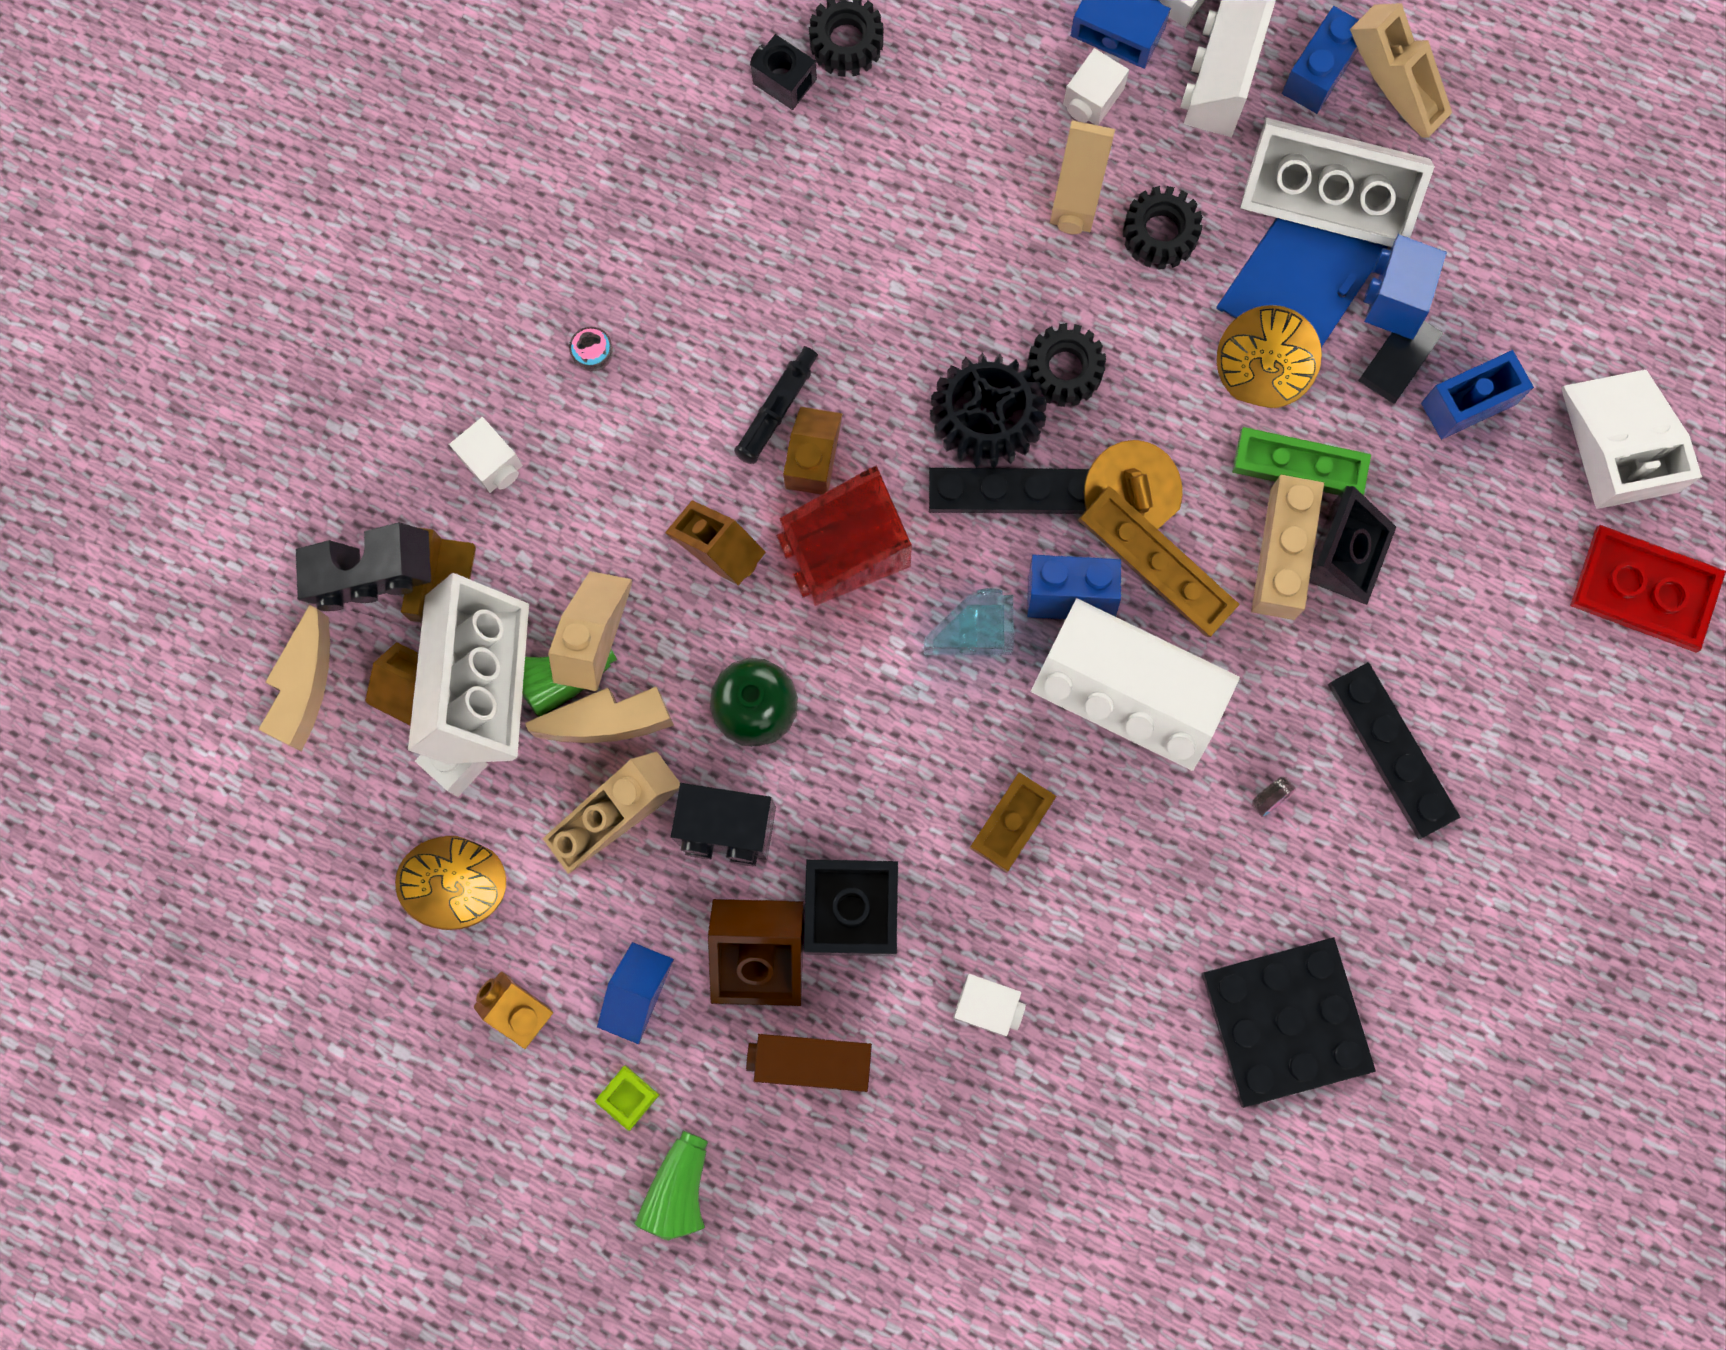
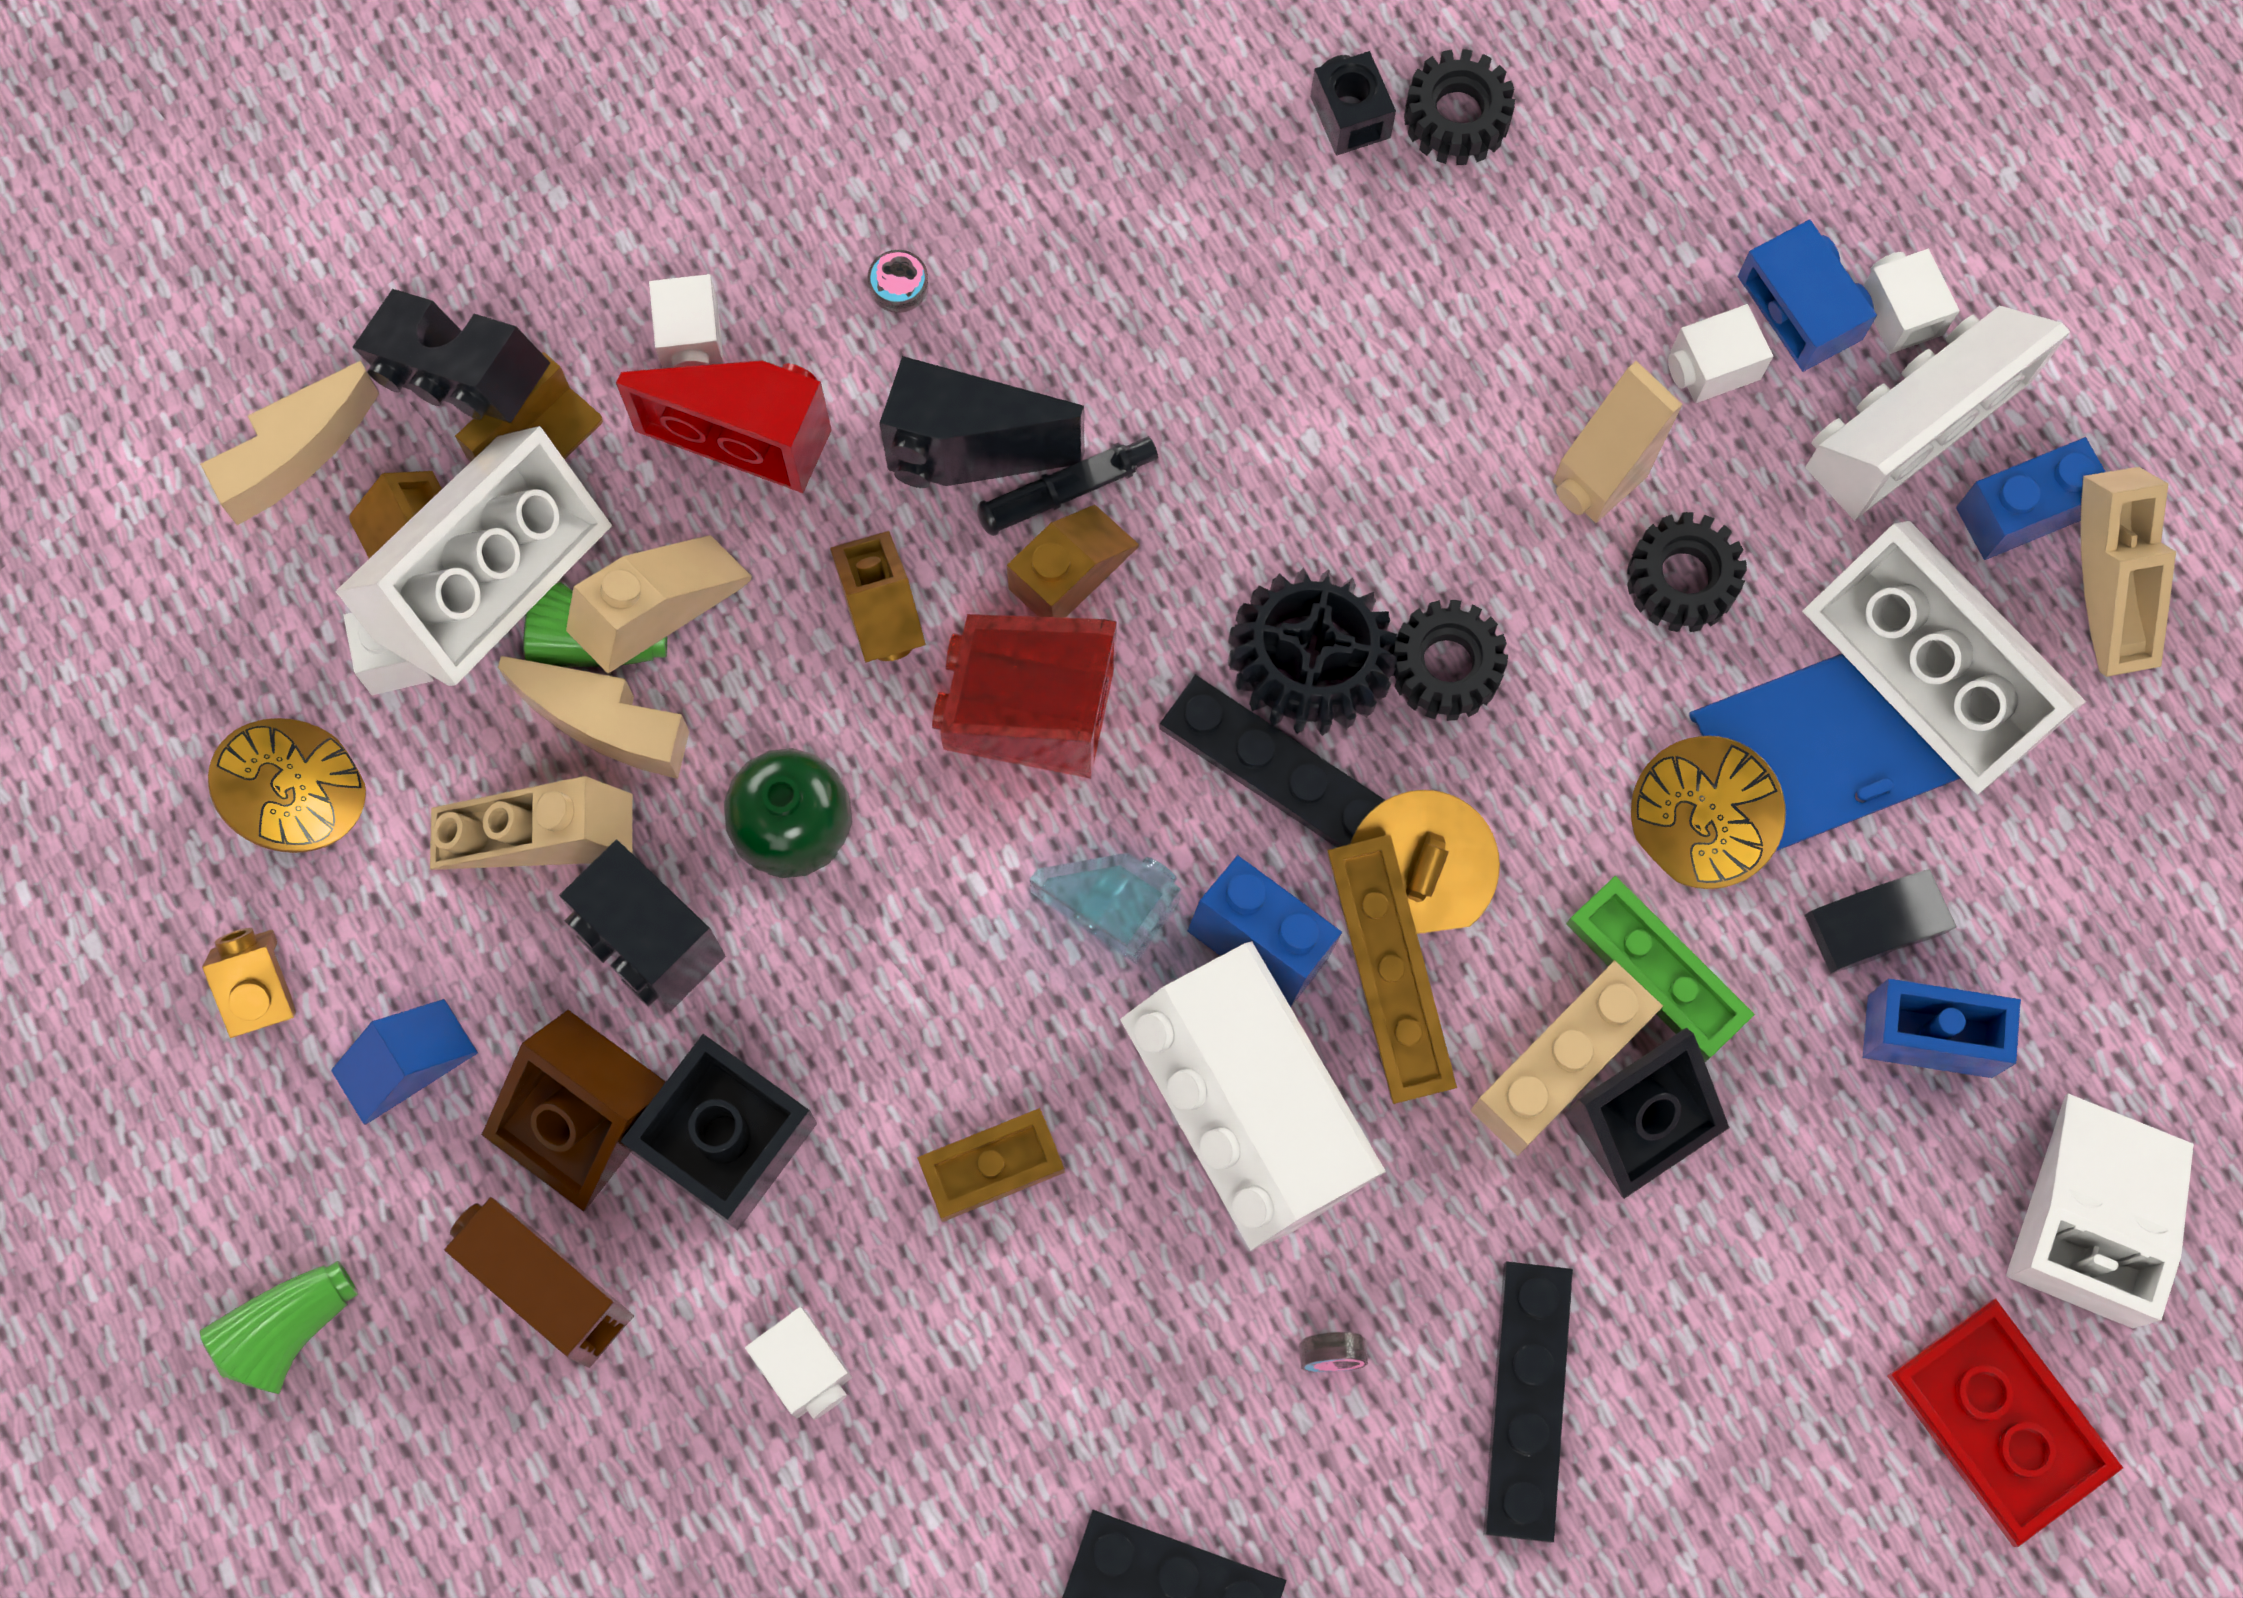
camera: 30 degrees right, 5 degrees down
(563, 489) = (736, 414): none -> red slope
(627, 1098) = (304, 1178): lime tile -> none
(703, 407) = (973, 429): none -> black slope
(1404, 286) = (1940, 835): brick -> none

